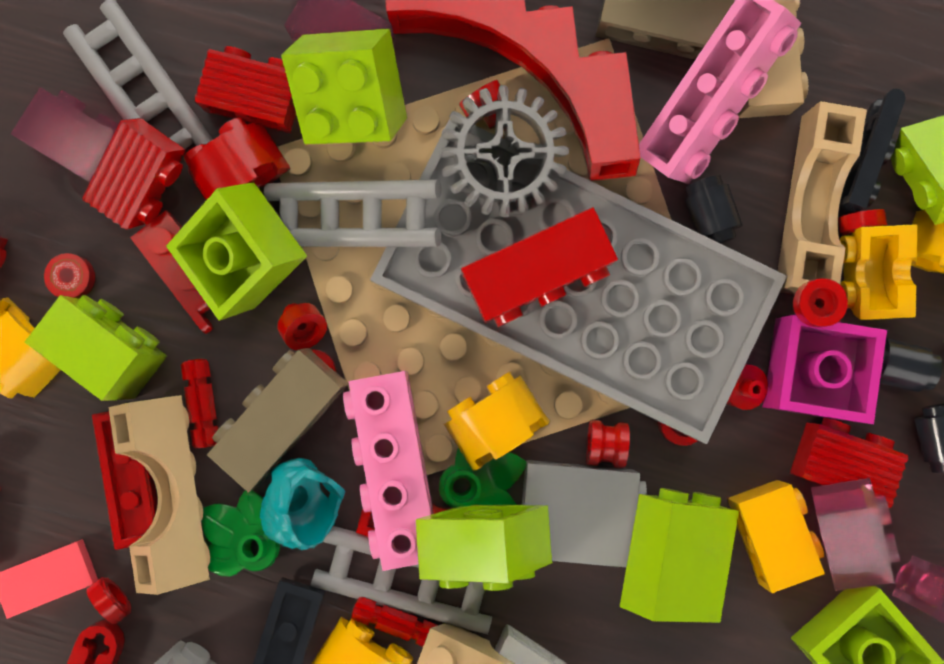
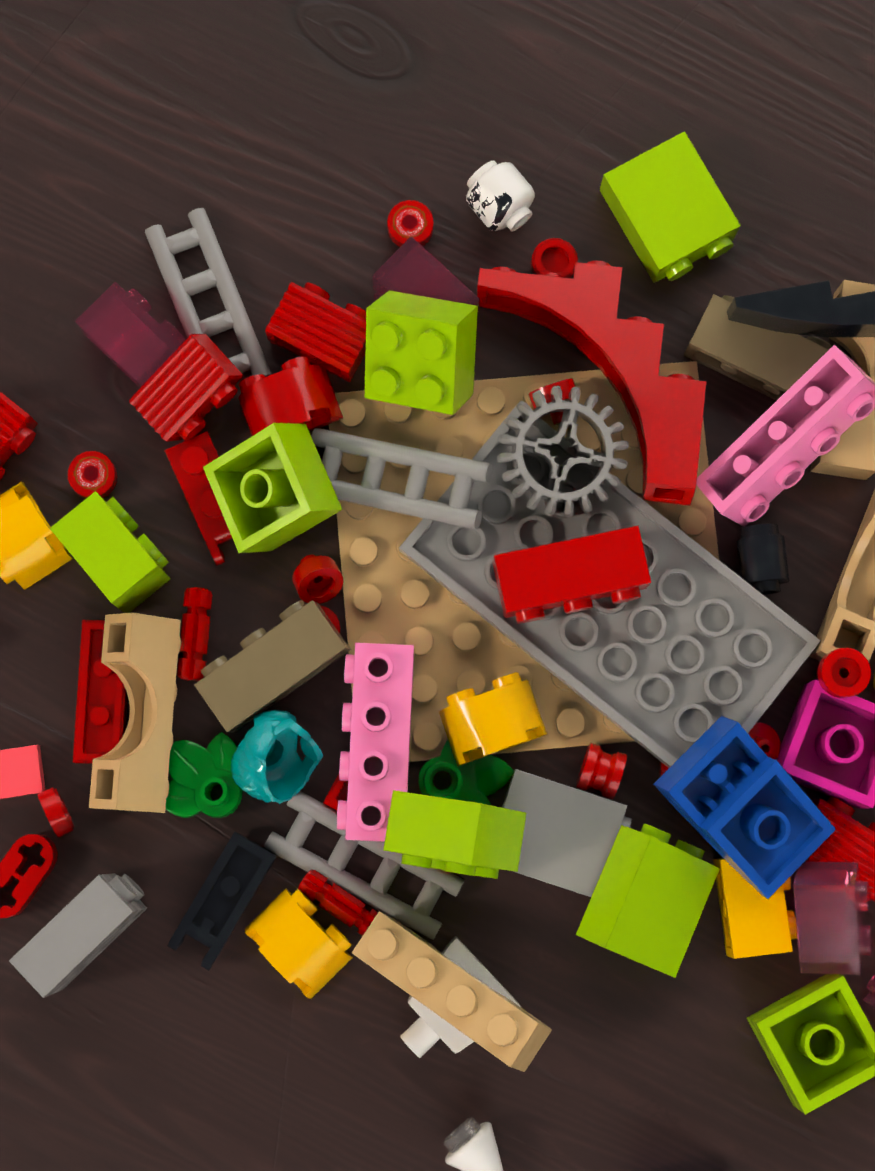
camera: 10 degrees right, 5 degrees down
(752, 449) = (745, 806): none -> blue slope

